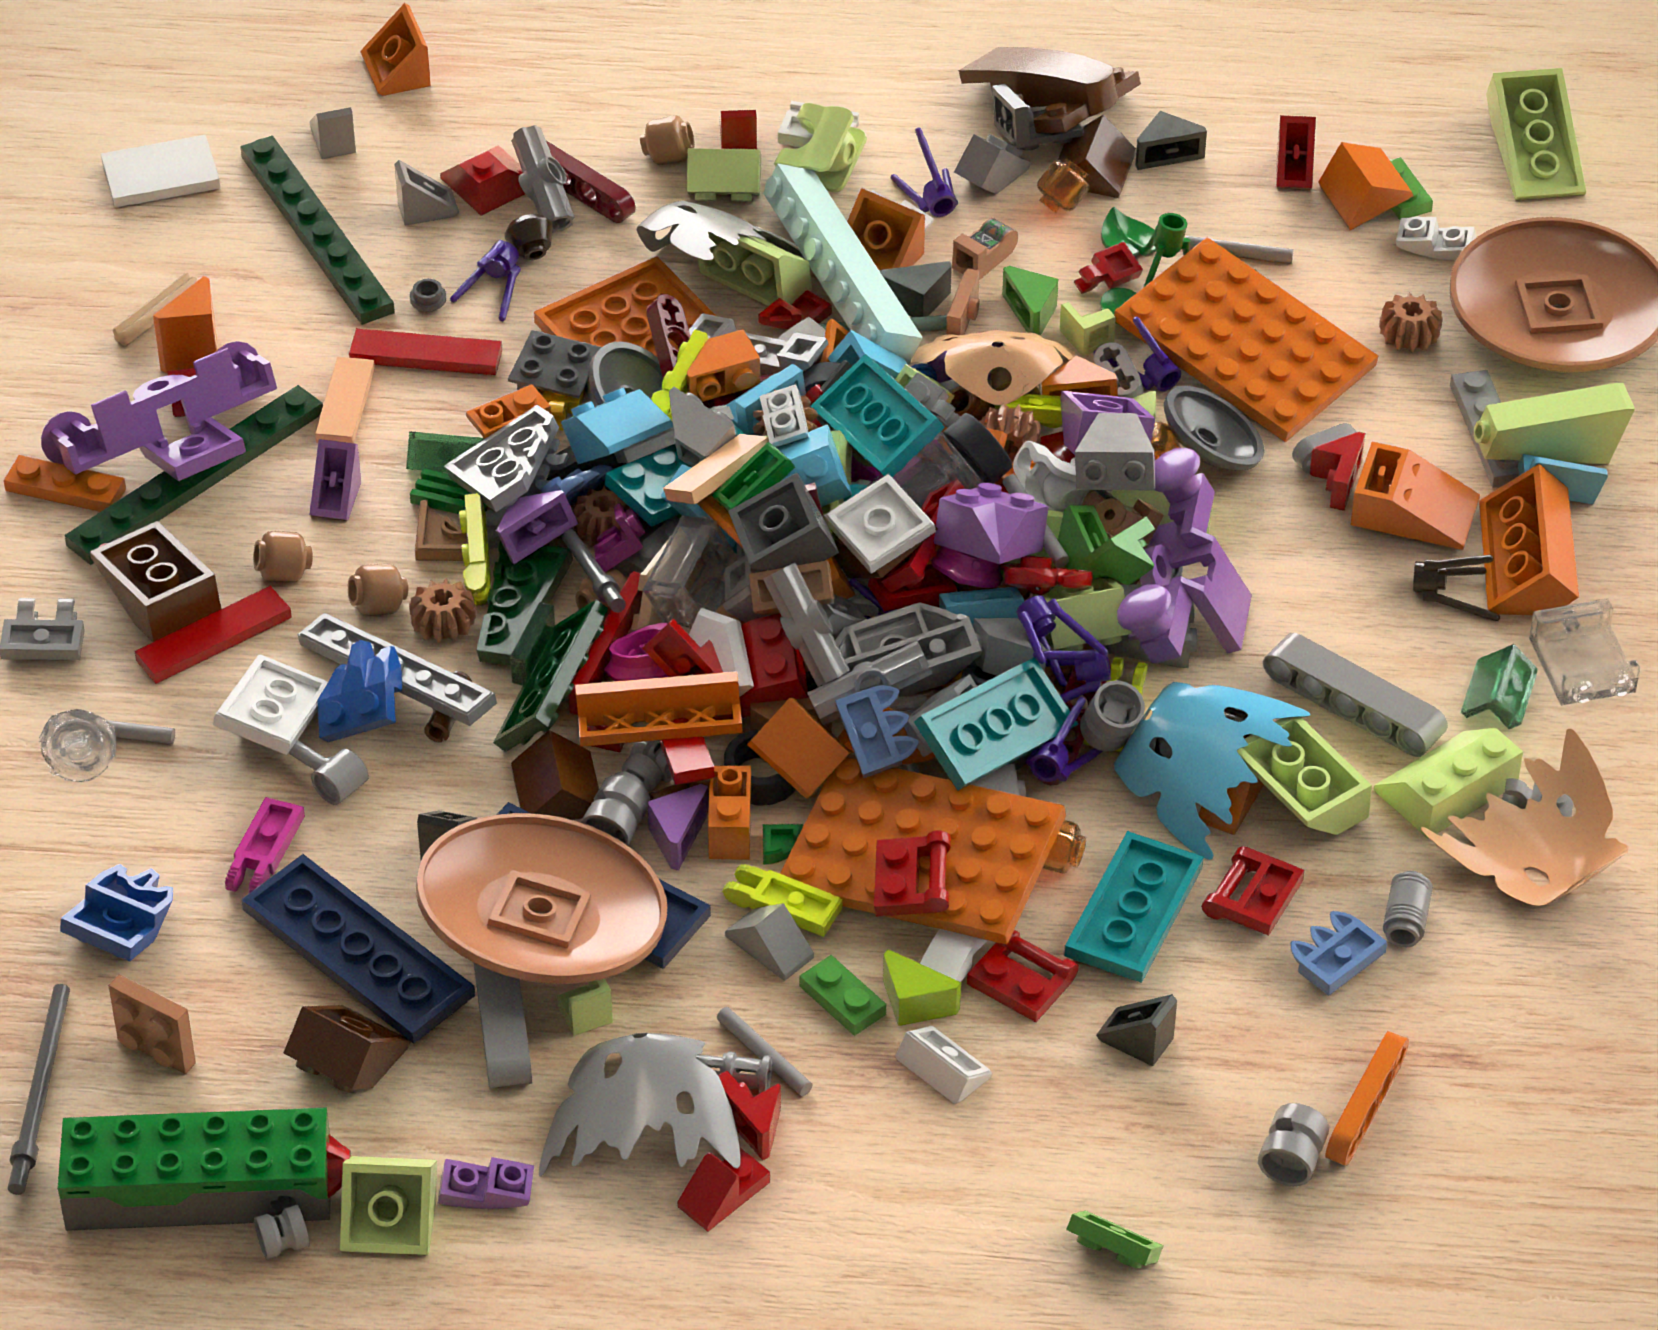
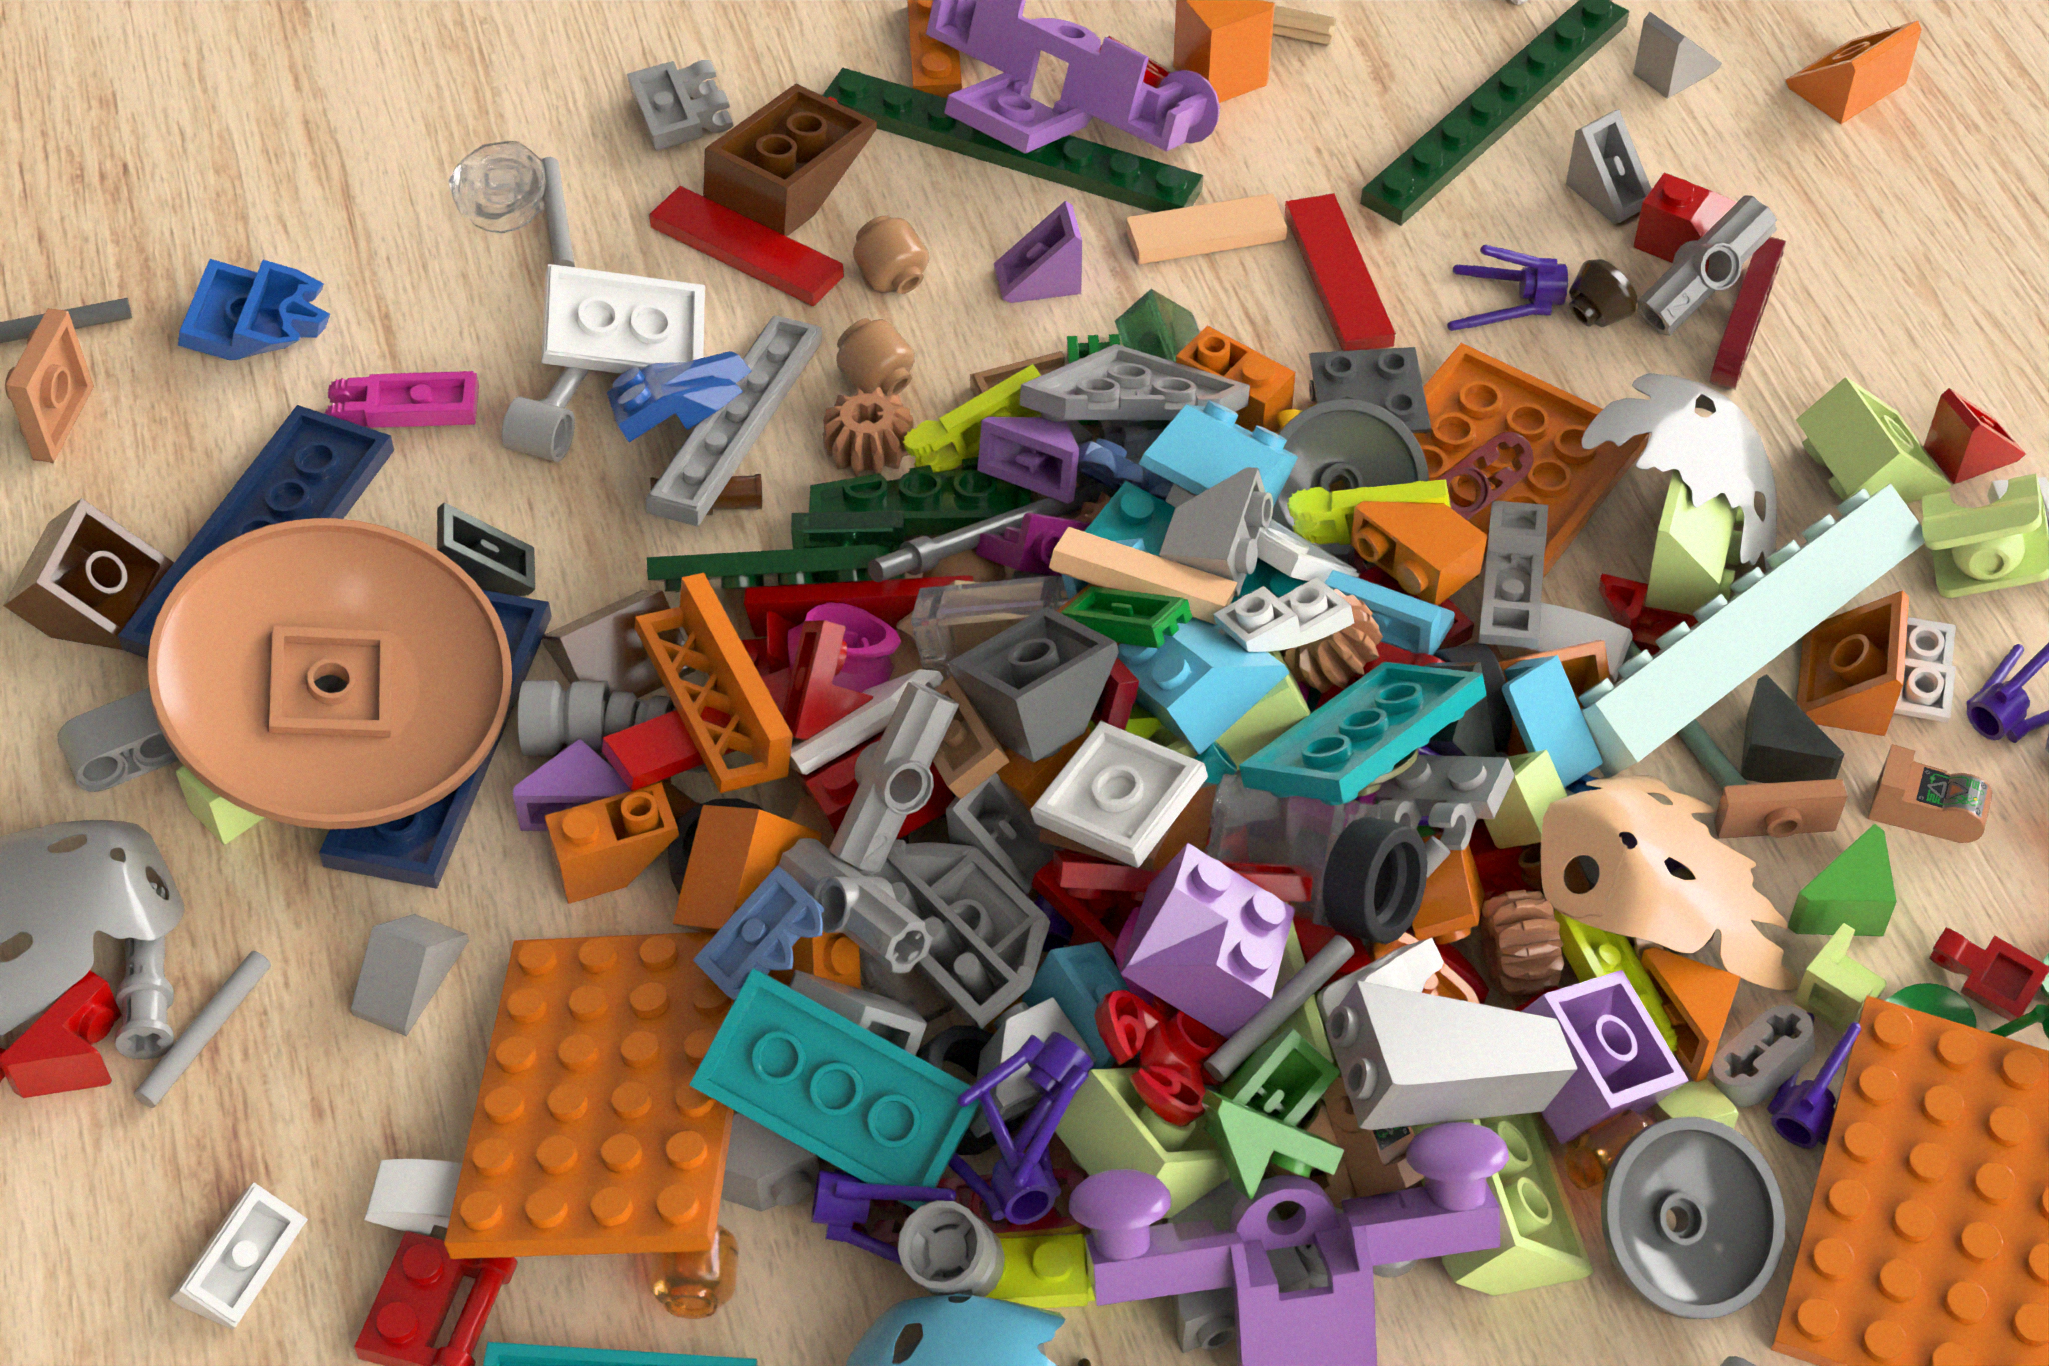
camera: 70 degrees right, 5 degrees up
(427, 295) = (1438, 239): dark grey plate -> none
(667, 139) = (1892, 369): medium nougat head -> none
(779, 841) = (599, 918): green tile -> none
(808, 905) = (481, 963): neon yellow hinge -> none
(842, 995) = (332, 1090): bright green plate -> none
(898, 875) = (518, 1080): red plate -> none
(918, 991) = (344, 1164): lime slope -> none

